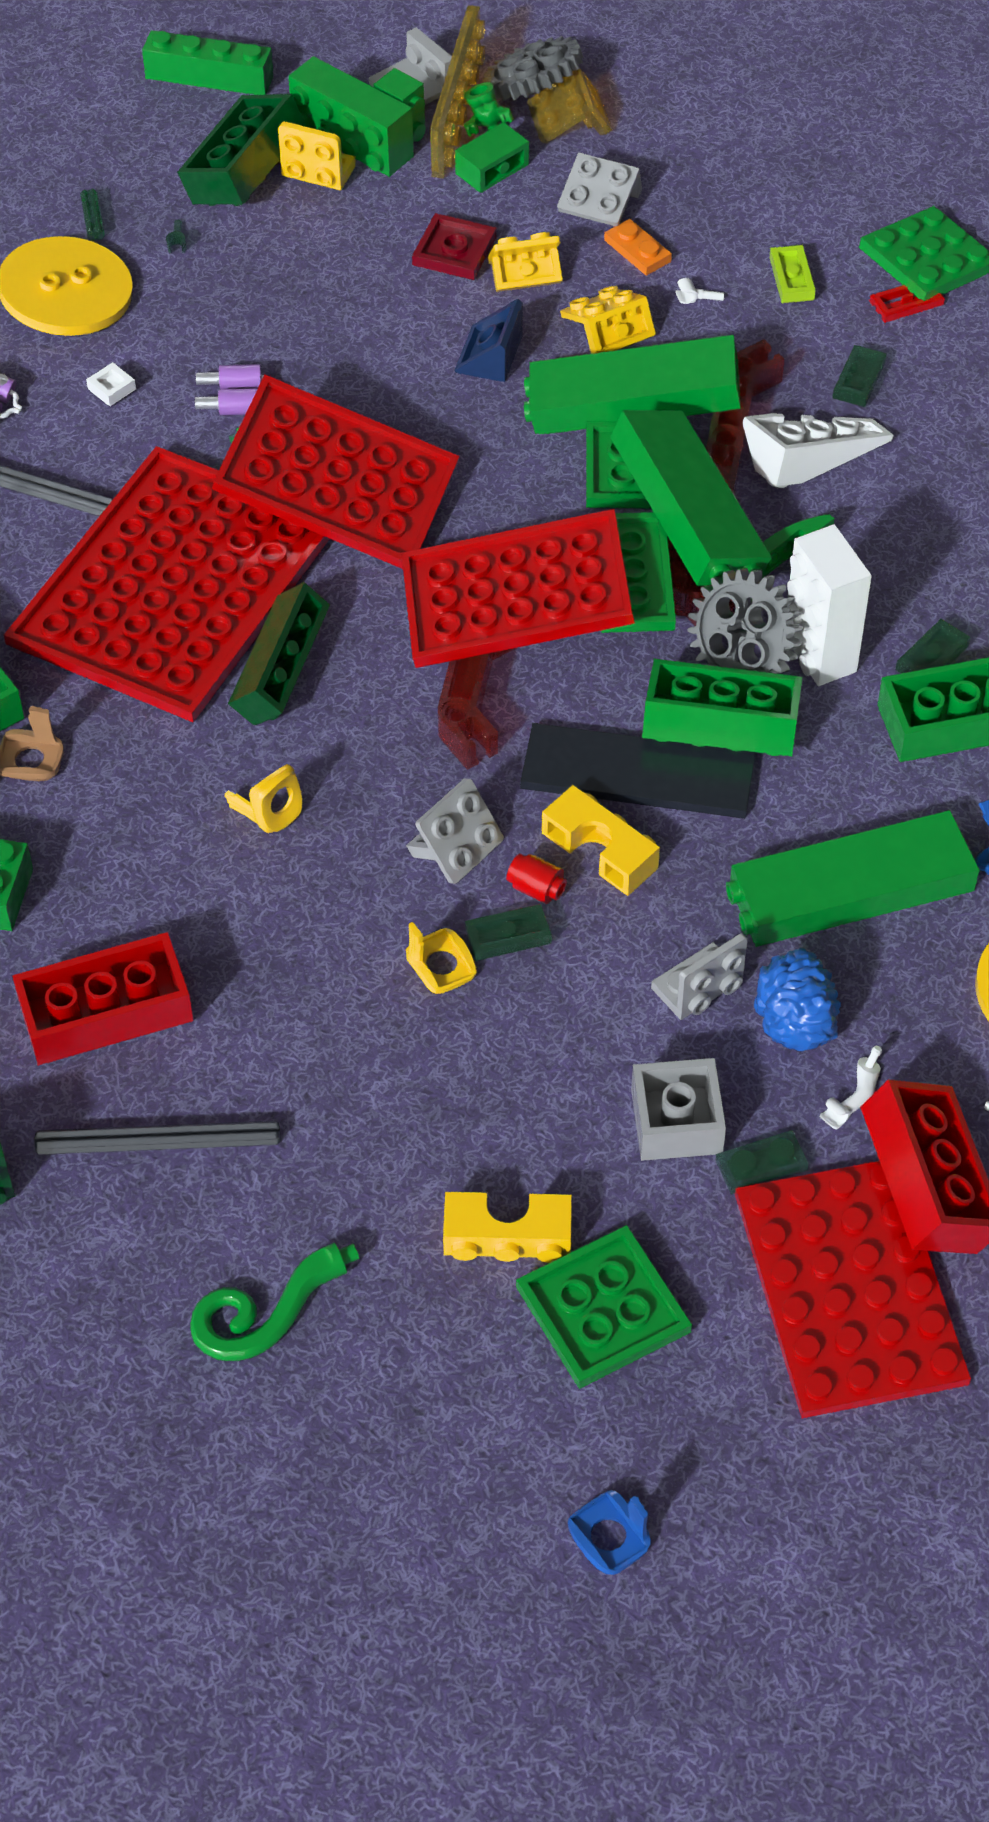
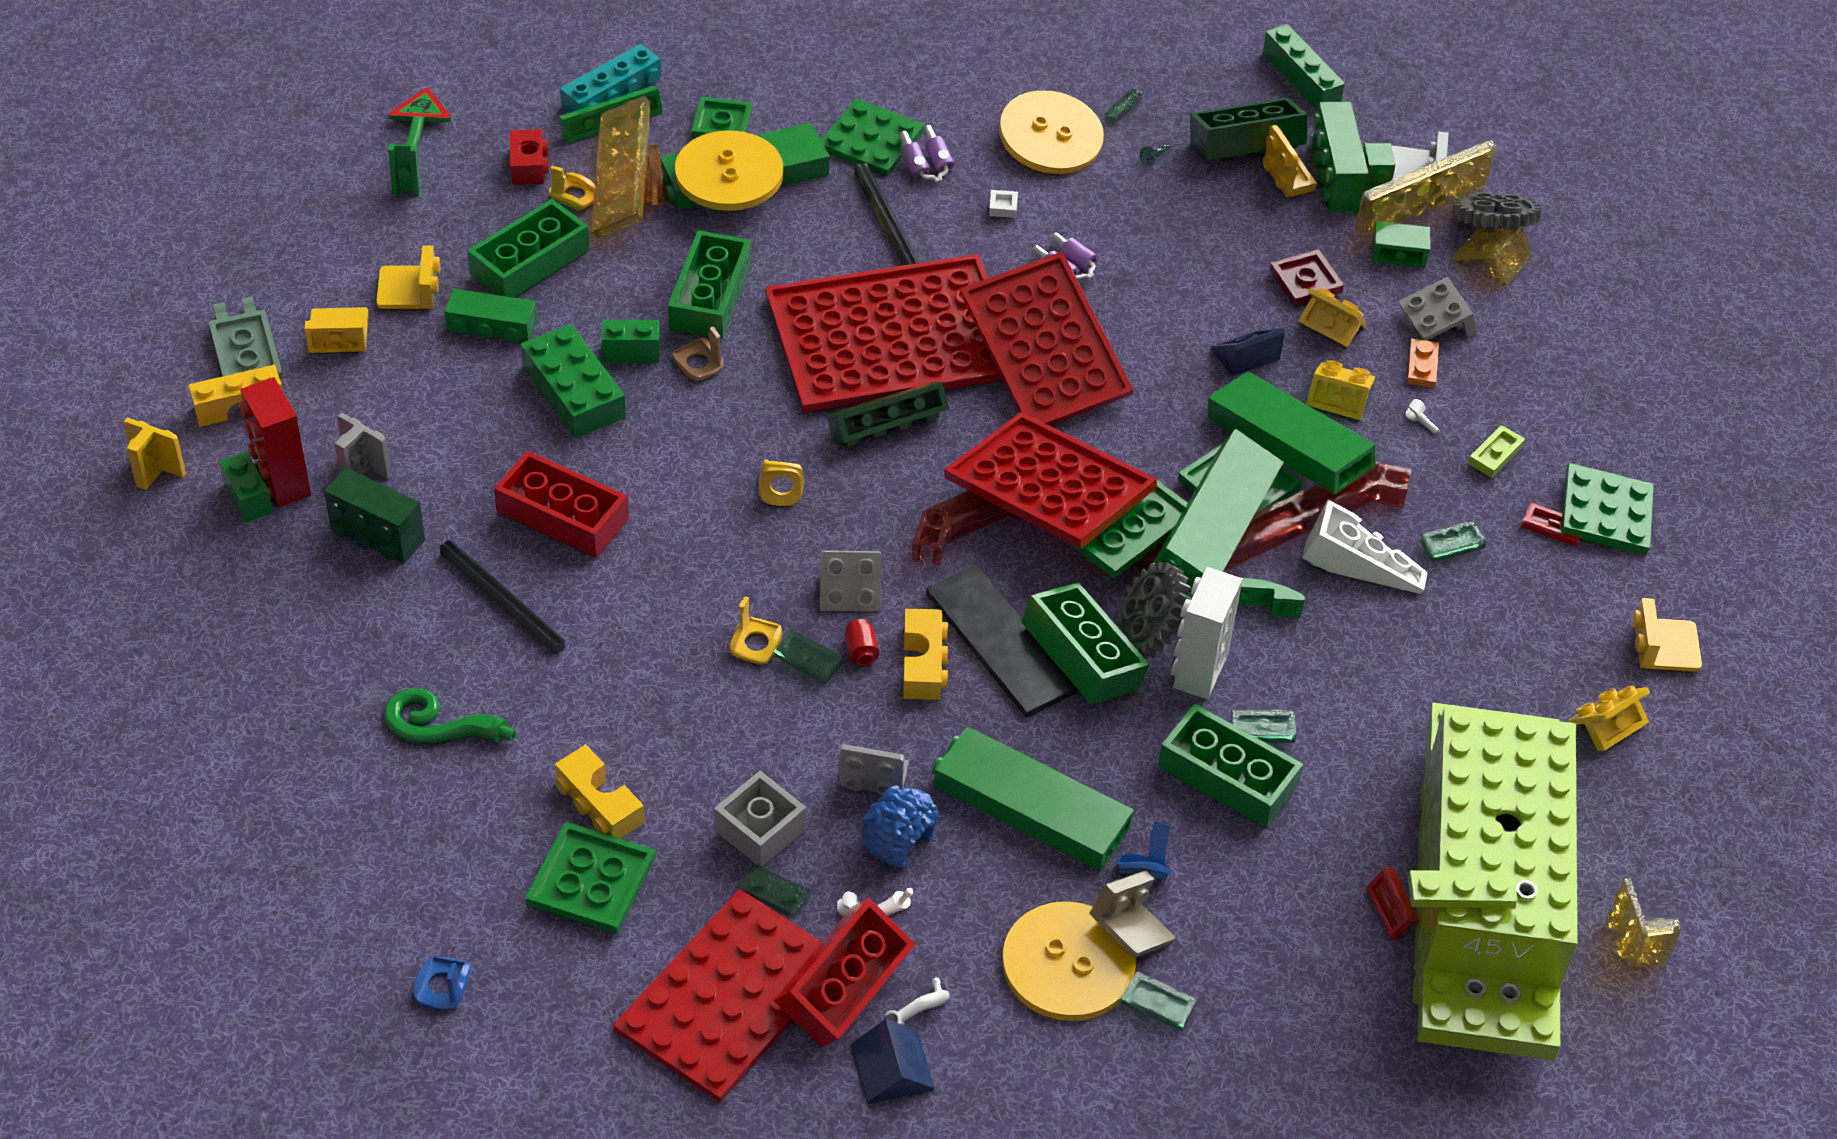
camera: 45 degrees right, 5 degrees down
(485, 109) = (1430, 211): green piece -> none

